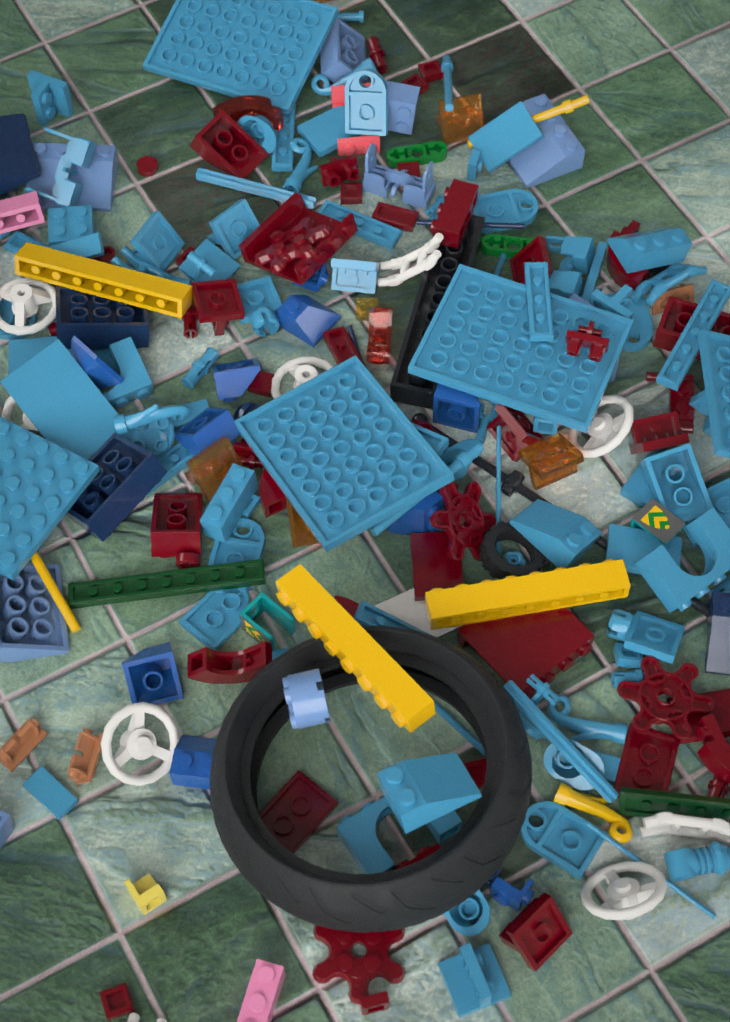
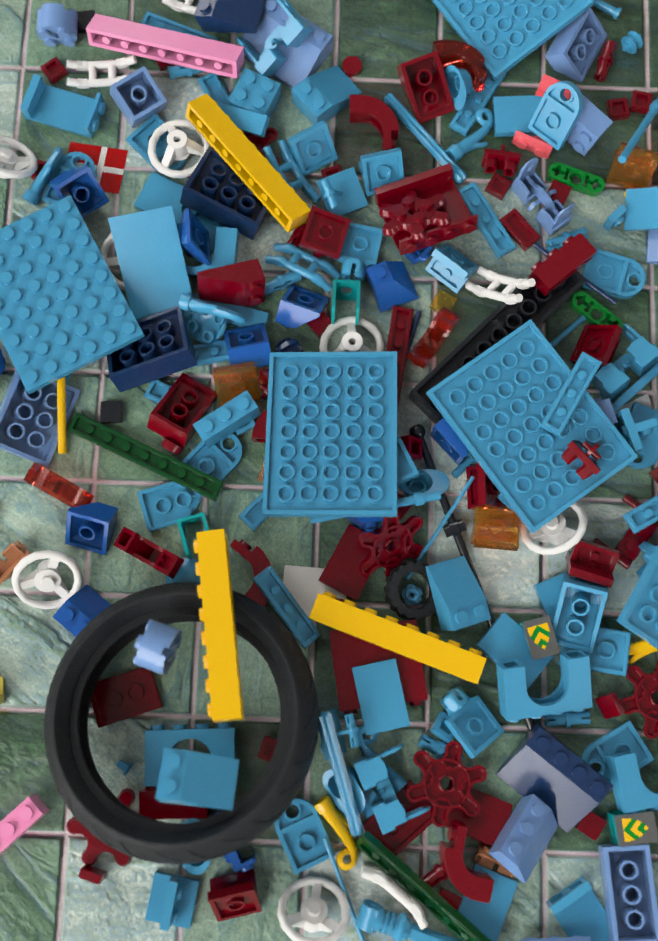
camera: 30 degrees right, 20 degrees up
(91, 654) = (57, 486): none -> clear red arch
(104, 565) = (111, 412): none -> black tile
(136, 199) = (324, 94): none -> dark azure slope
(139, 523) = (156, 390): none -> dark azure tile
(161, 381) = (233, 284): none -> dark red slope
(189, 338) = (309, 273): none -> dark azure piece
(197, 190) = (376, 113): none -> dark red arch
(283, 340) = (337, 294): none -> teal piece
(317, 562) = (252, 515): none -> dark azure tile
(366, 64) = (583, 73): dark azure plant -> none
(390, 30) = (632, 42): none -> dark azure wheel
(548, 655) = (380, 696): none -> dark azure tile
(630, 750) = (388, 810): none -> dark azure piece

